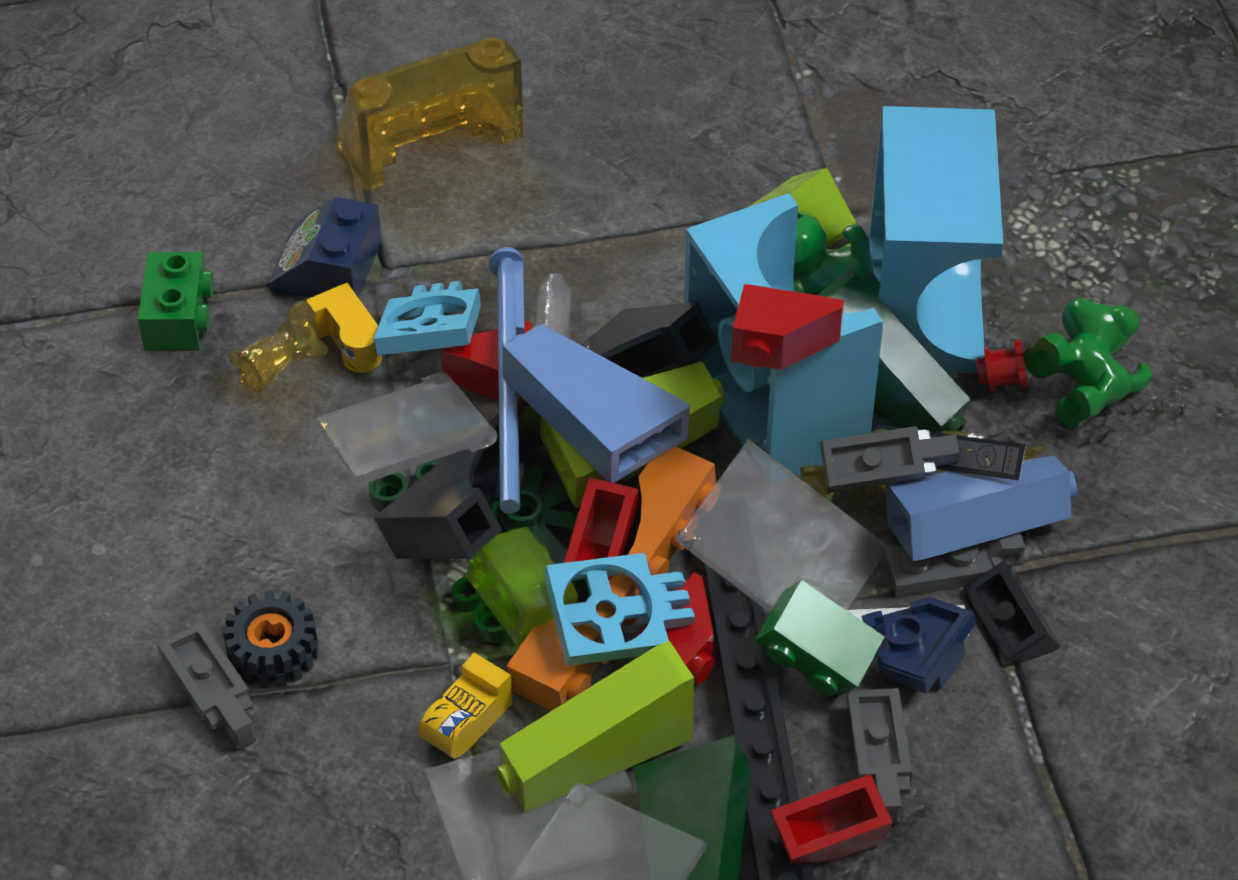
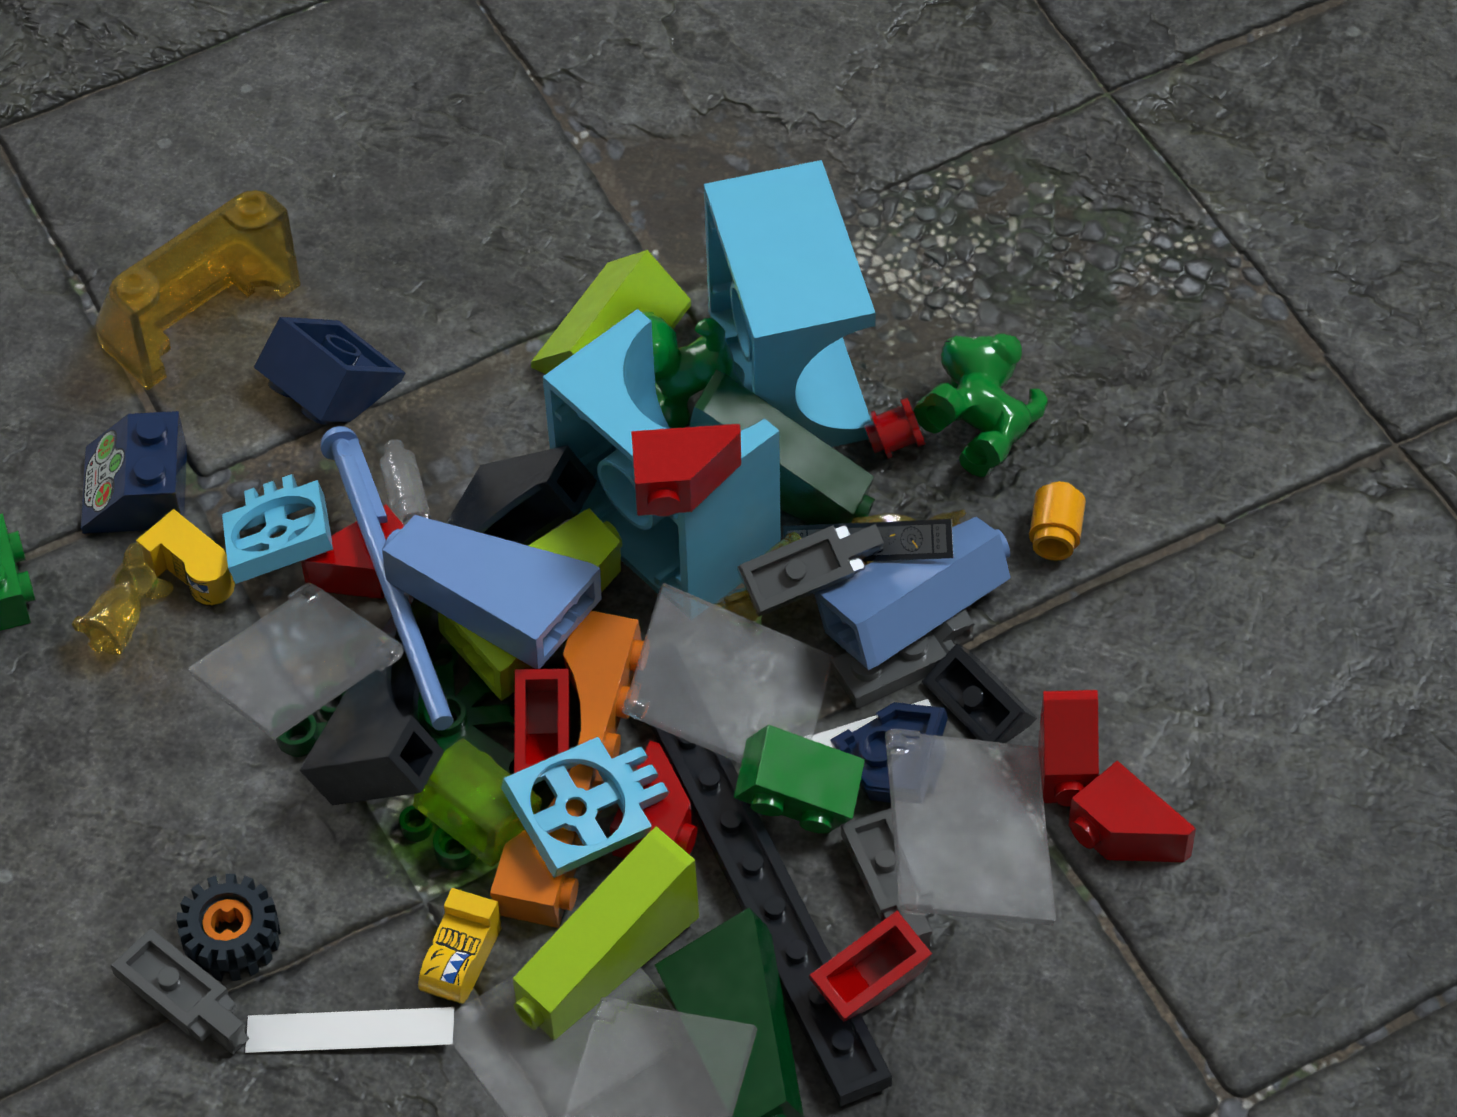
camera: 15 degrees left, 5 degrees up
(347, 755) = (350, 1030): none -> white sticker
(518, 203) = (325, 368): none -> dark blue slope
(965, 724) = (969, 828): none -> clear piece
(1080, 674) = (1068, 743): none -> red slope
(1119, 756) = (1129, 820): none -> red slope
(1129, 479) = (1057, 520): none -> light orange brick

